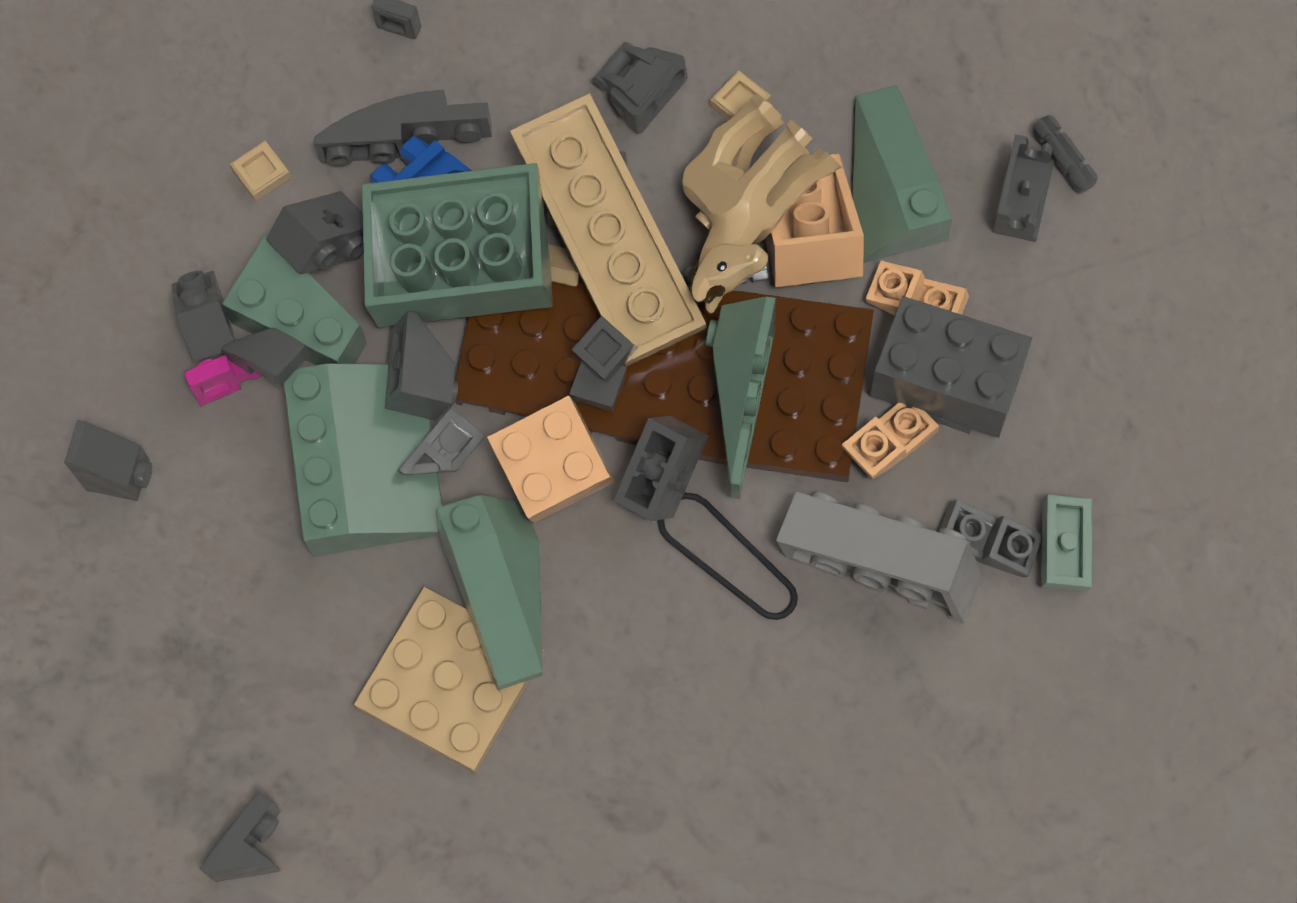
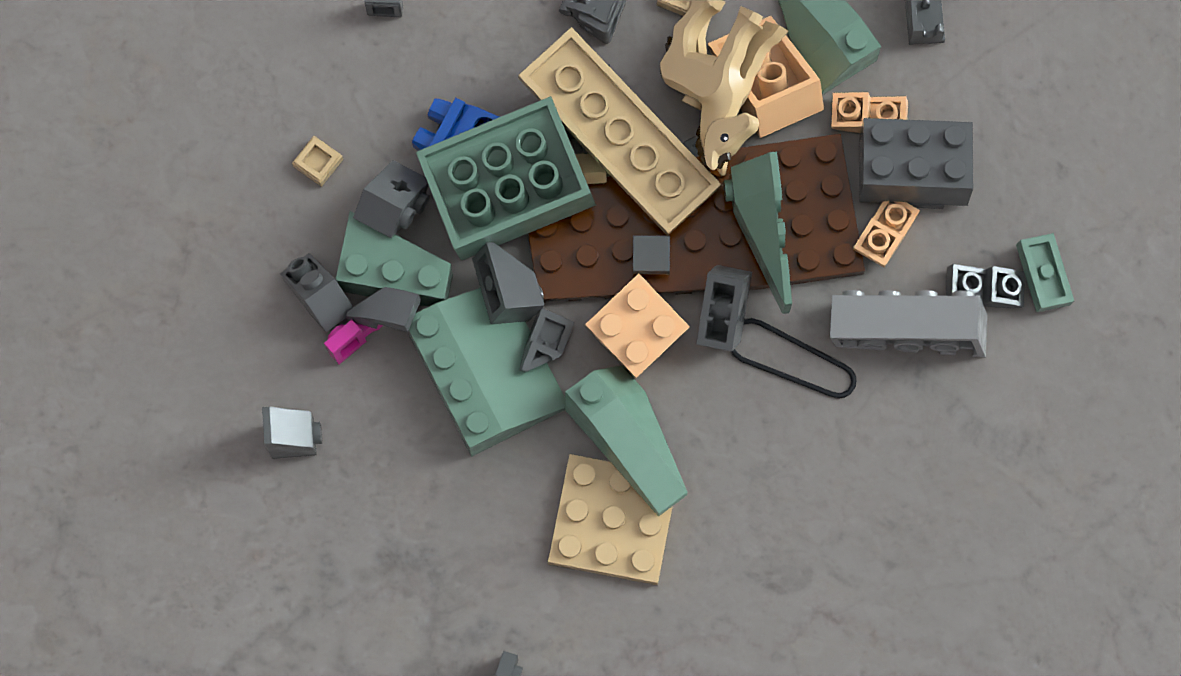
camera: 25 degrees left, 5 degrees up
(384, 127) = (408, 98): dark grey slope -> none
(604, 348) = (650, 227): dark grey tile -> none

